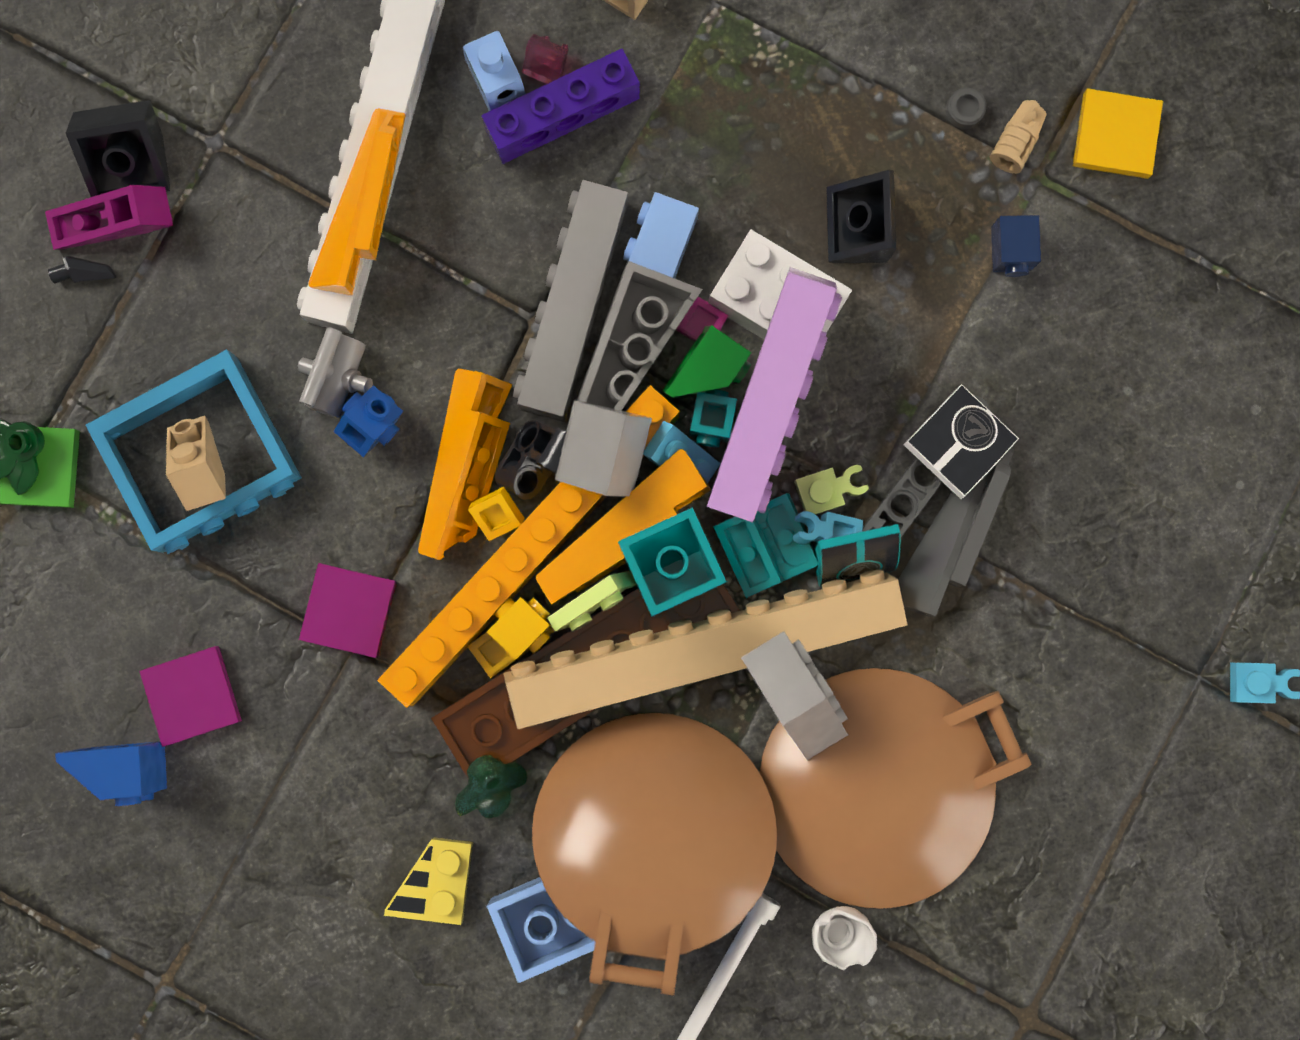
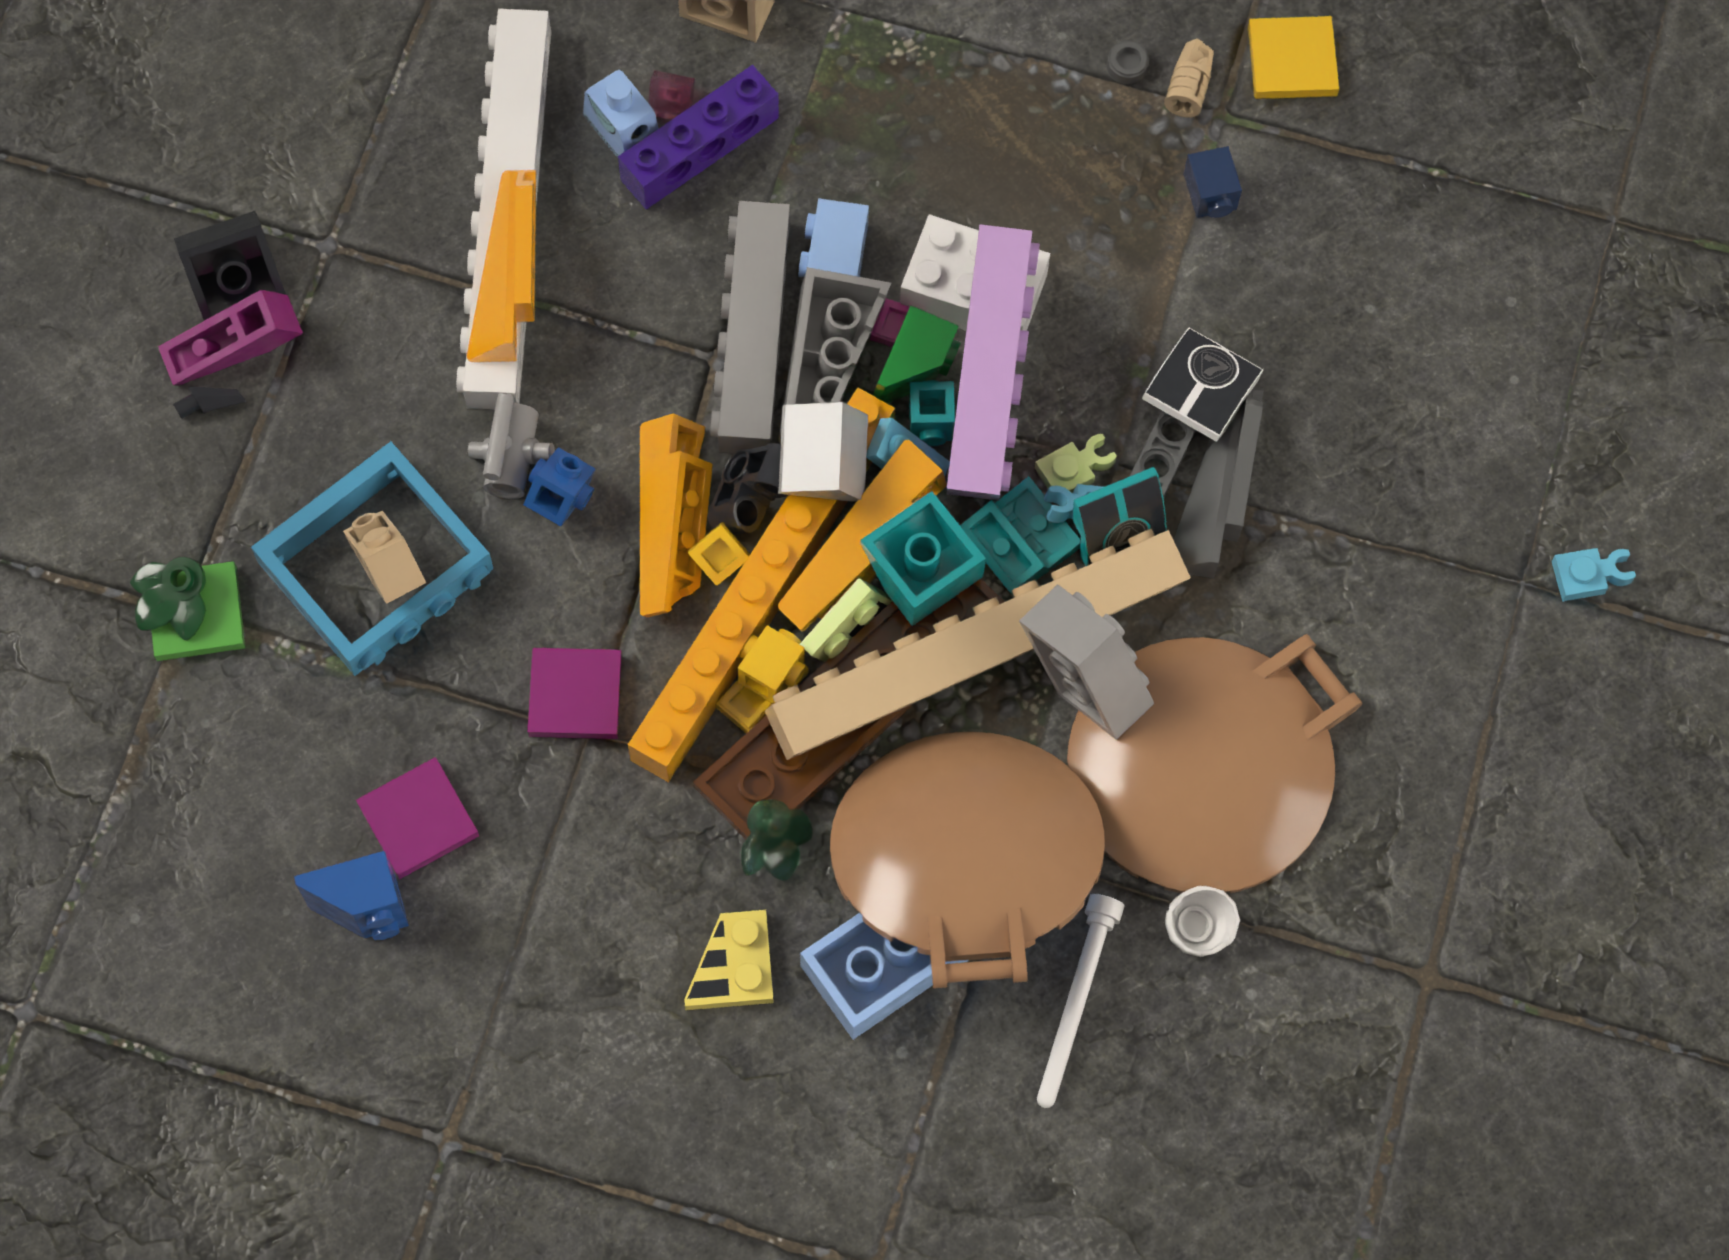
camera: 10 degrees left, 15 degrees down
(862, 219) = (1045, 187): black slope -> none

